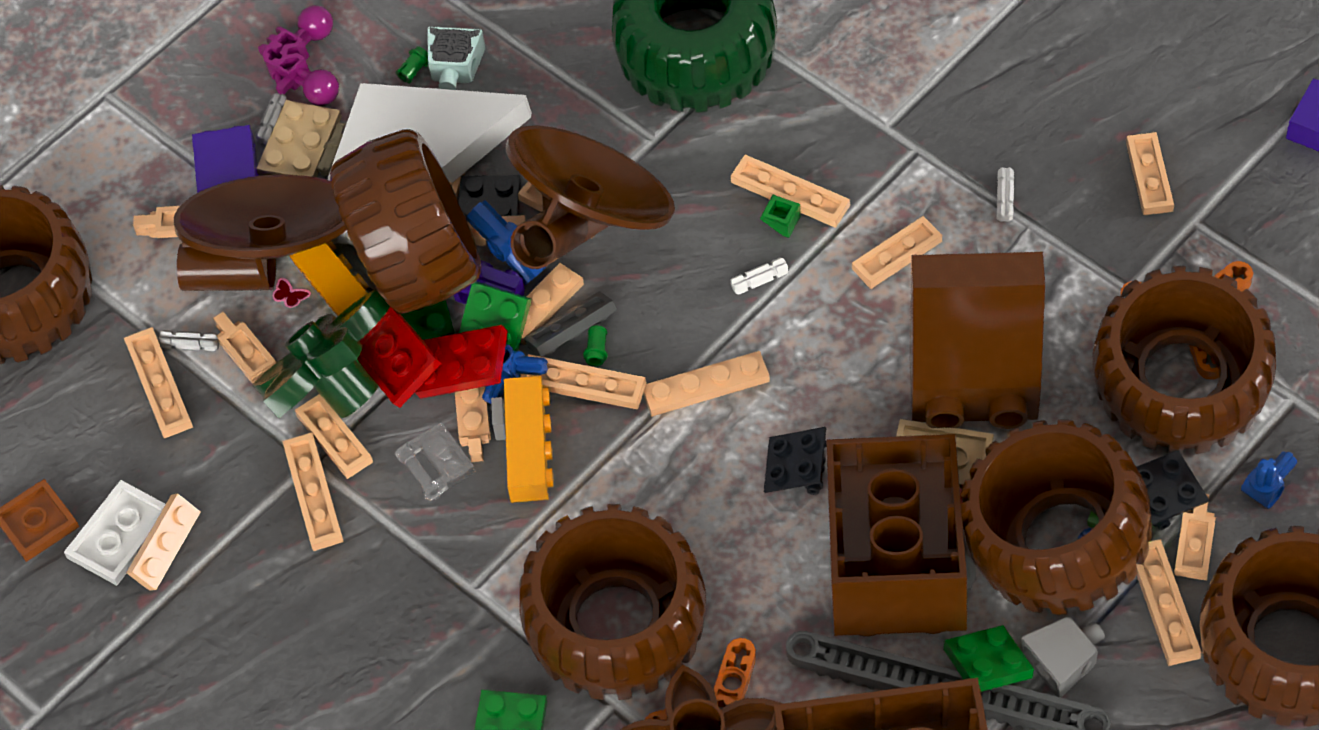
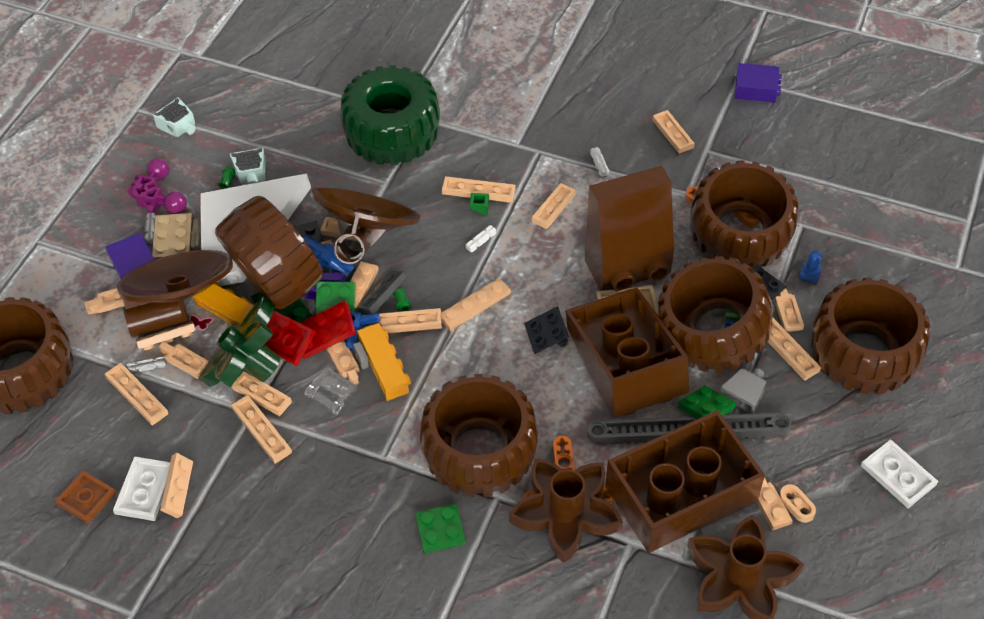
camera: 25 degrees left, 5 degrees down
(231, 303) = (167, 336): none -> light nougat plate

